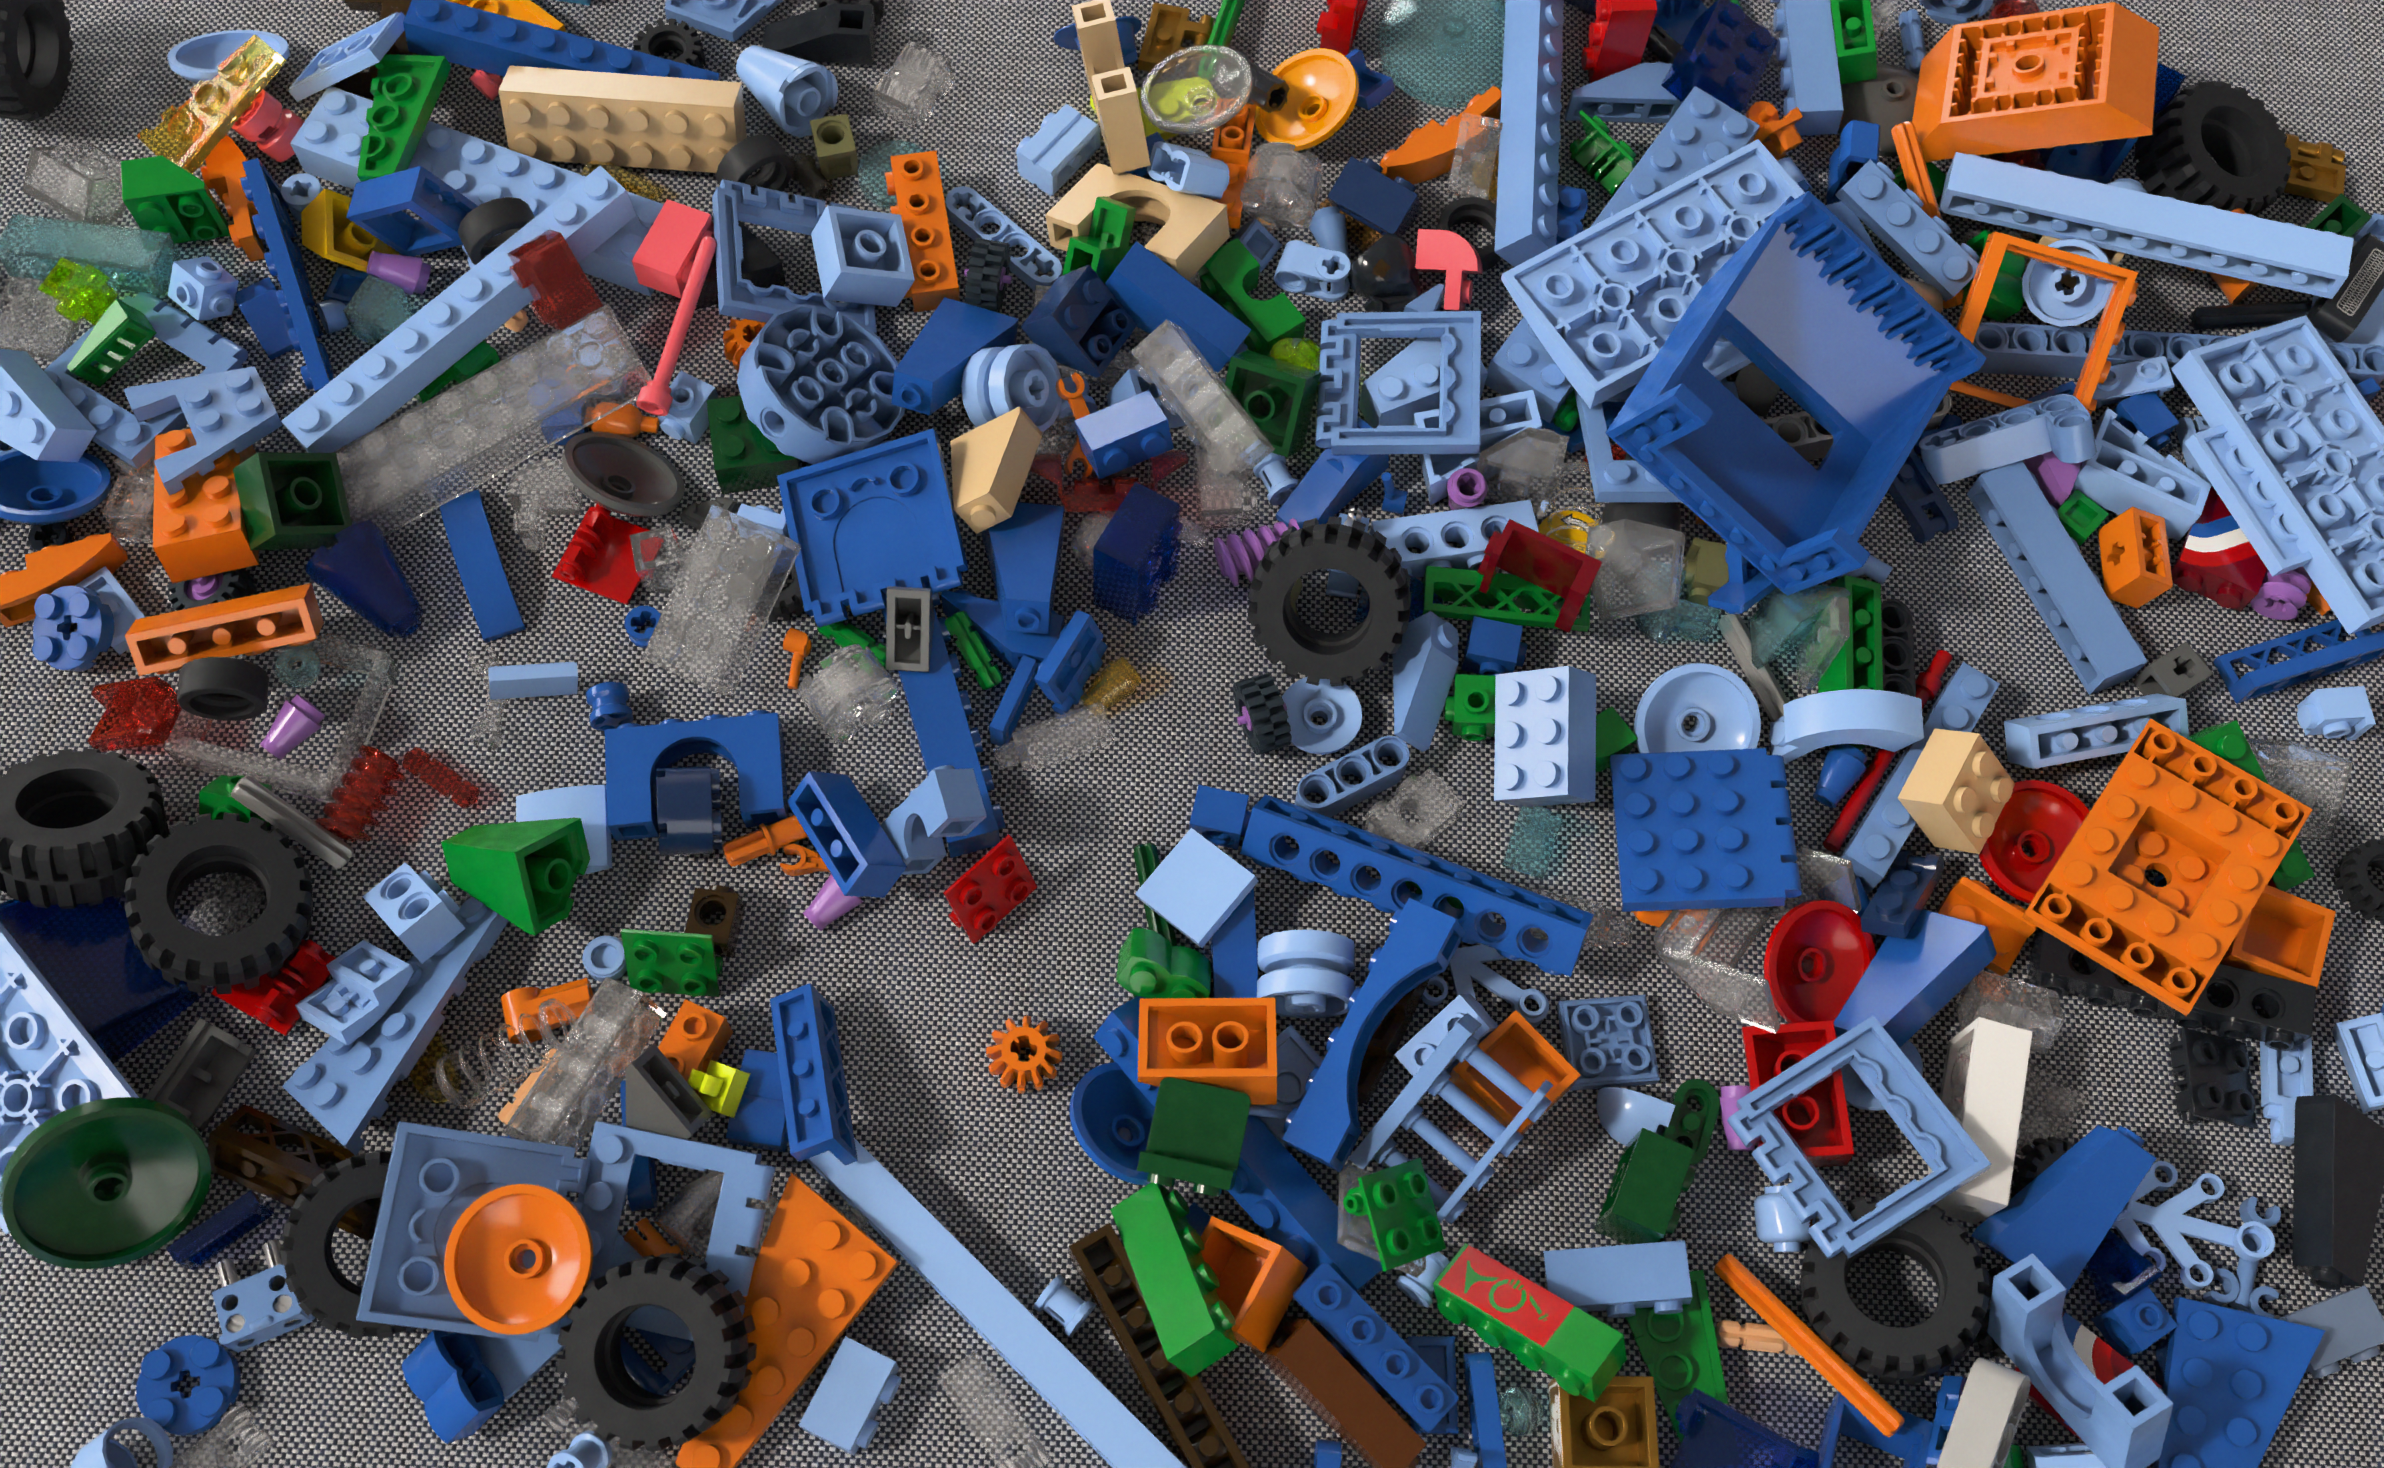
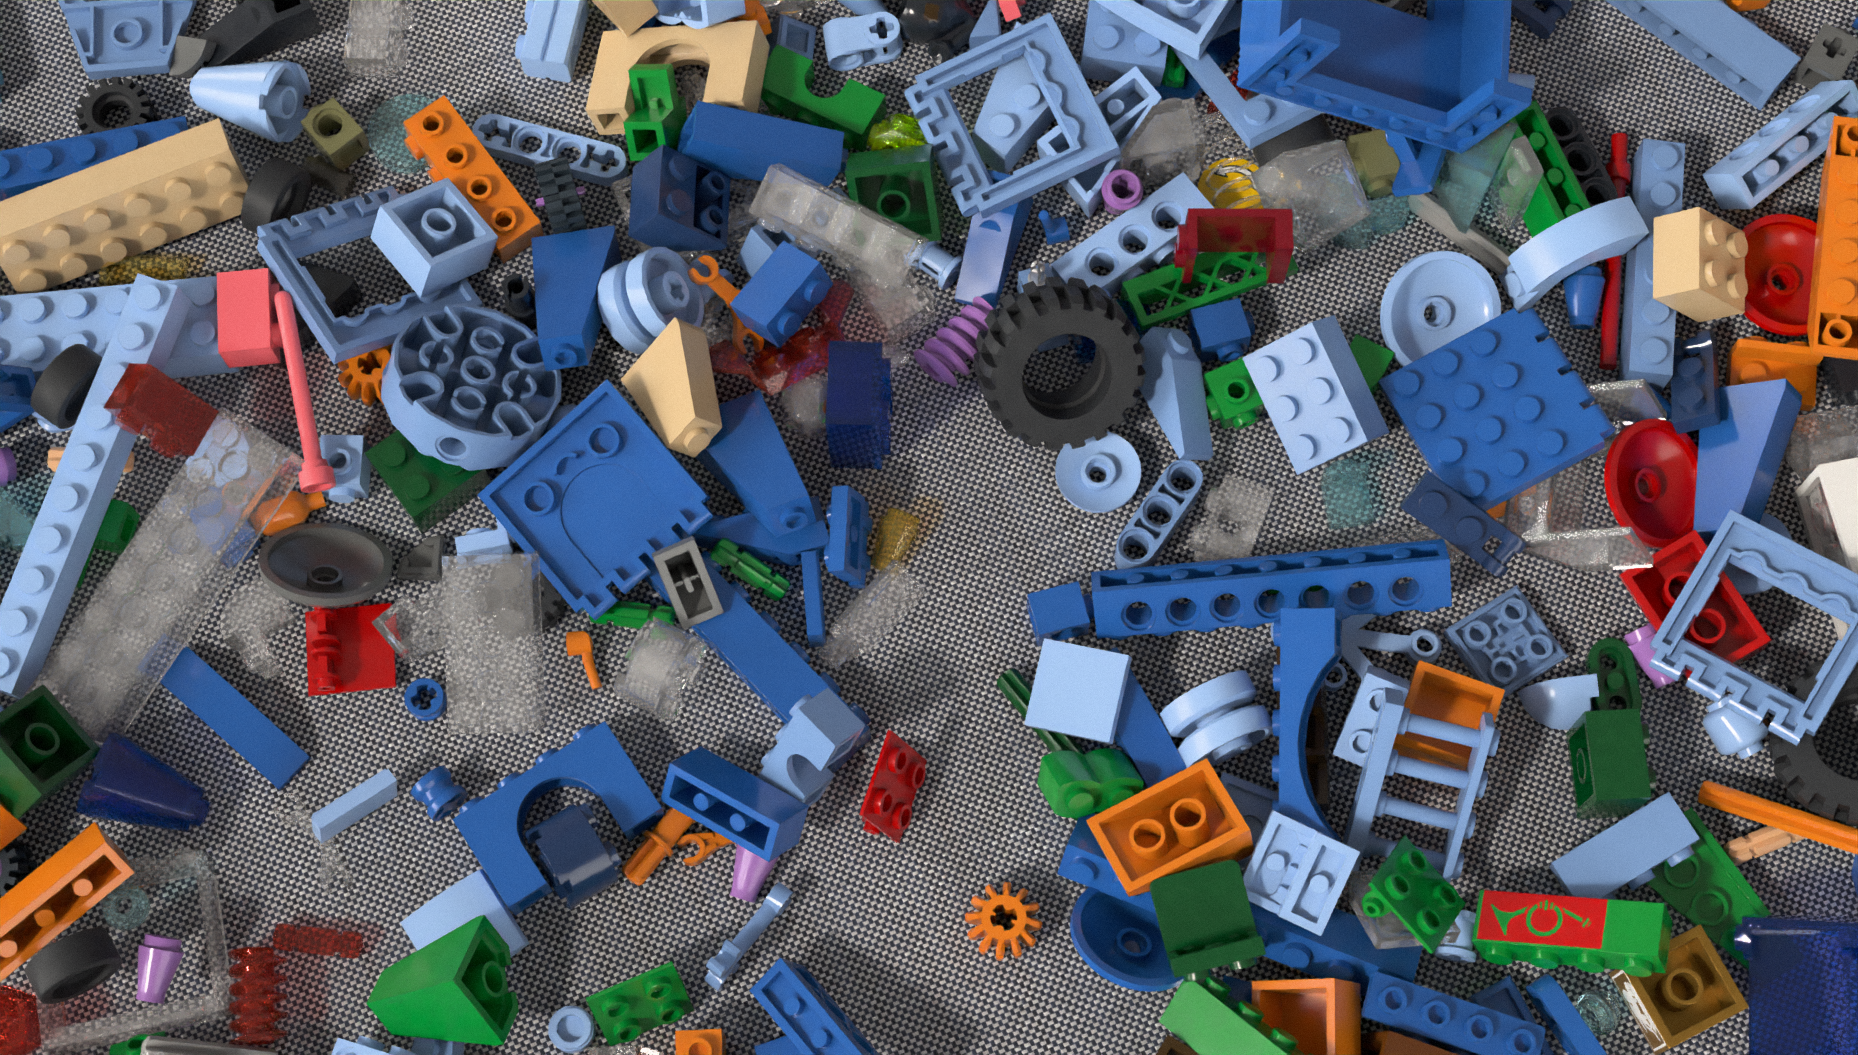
camera: 20 degrees left, 5 degrees up
(711, 900) = (652, 920): dark brown brick -> none
(754, 33) = (190, 55): none -> tile
(768, 962) = (732, 952): none -> medium blue bar
(904, 333) = (520, 300): none -> black pin
(1262, 713) = (1048, 498): black wheel -> none
(1301, 1137) = (1297, 872): none -> light blue slope
(1618, 909) = (1462, 523): none -> dark blue plate

